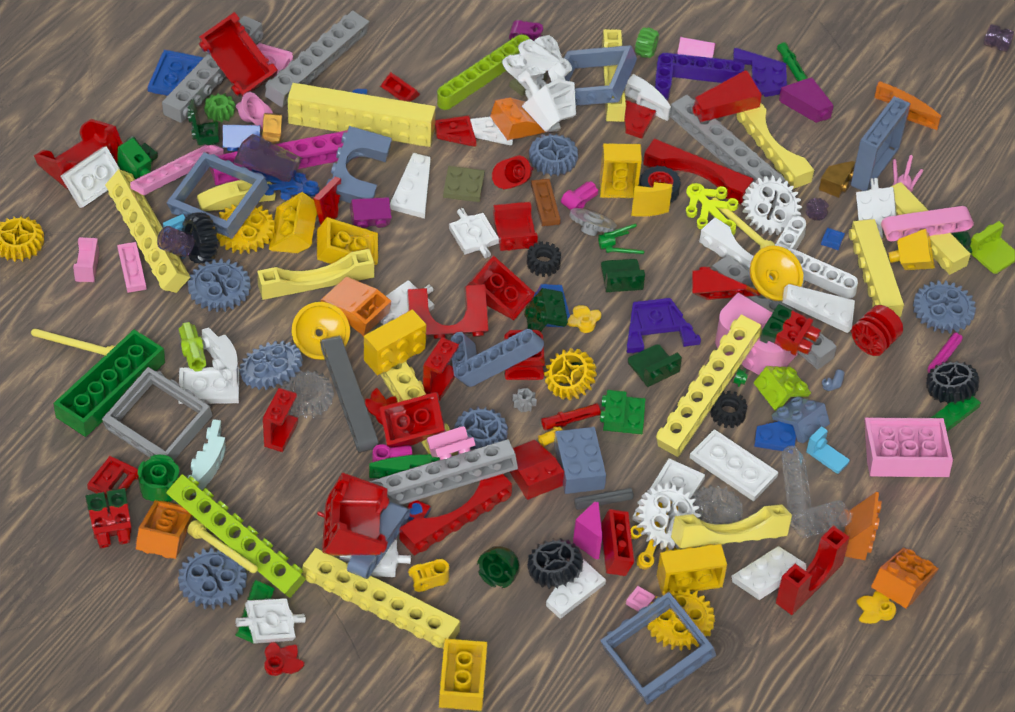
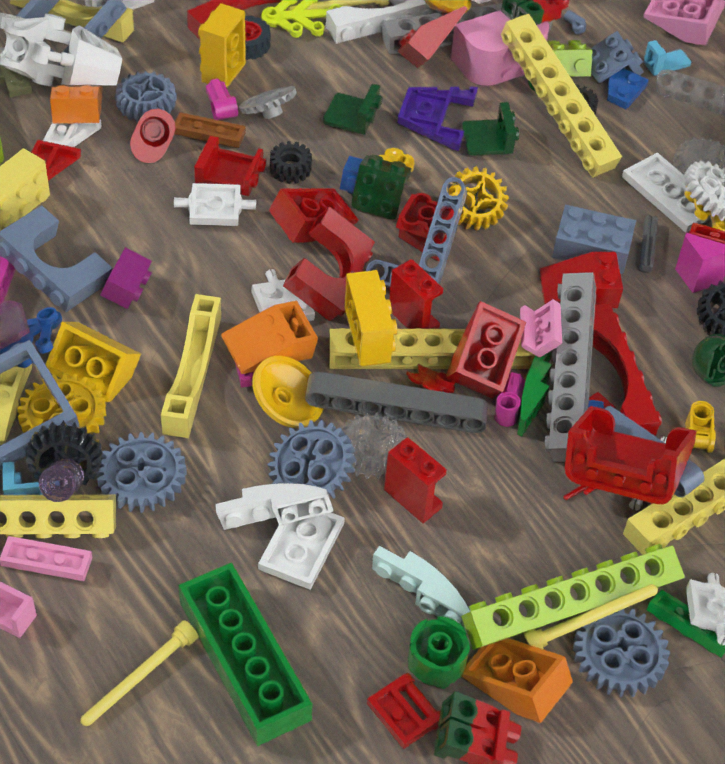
camera: 65 degrees left, 0 degrees up
(134, 393) = (355, 657): light grey window -> none
(192, 347) = (234, 535): lime piece -> none
(327, 201) = (88, 307): red wing -> none
(339, 239) = (155, 323): yellow slope -> none
(413, 187) = (104, 230): white wing -> none
(463, 184) = (131, 186): olive plate -> none
(484, 425) = (511, 295): sand blue gear -> none
(524, 400) = (485, 252): light grey gear -> none
(548, 437) = (545, 248): yellow pin -> none
(565, 418) = (526, 231): red pin -> none
(607, 240) = (298, 105): green plant -> none
(622, 412) = (539, 184): green plate -> none
(637, 119) = (145, 20): red wing -> none
(651, 201) = (270, 46): yellow slope -> none
(734, 465) = (651, 129): white plate -> none

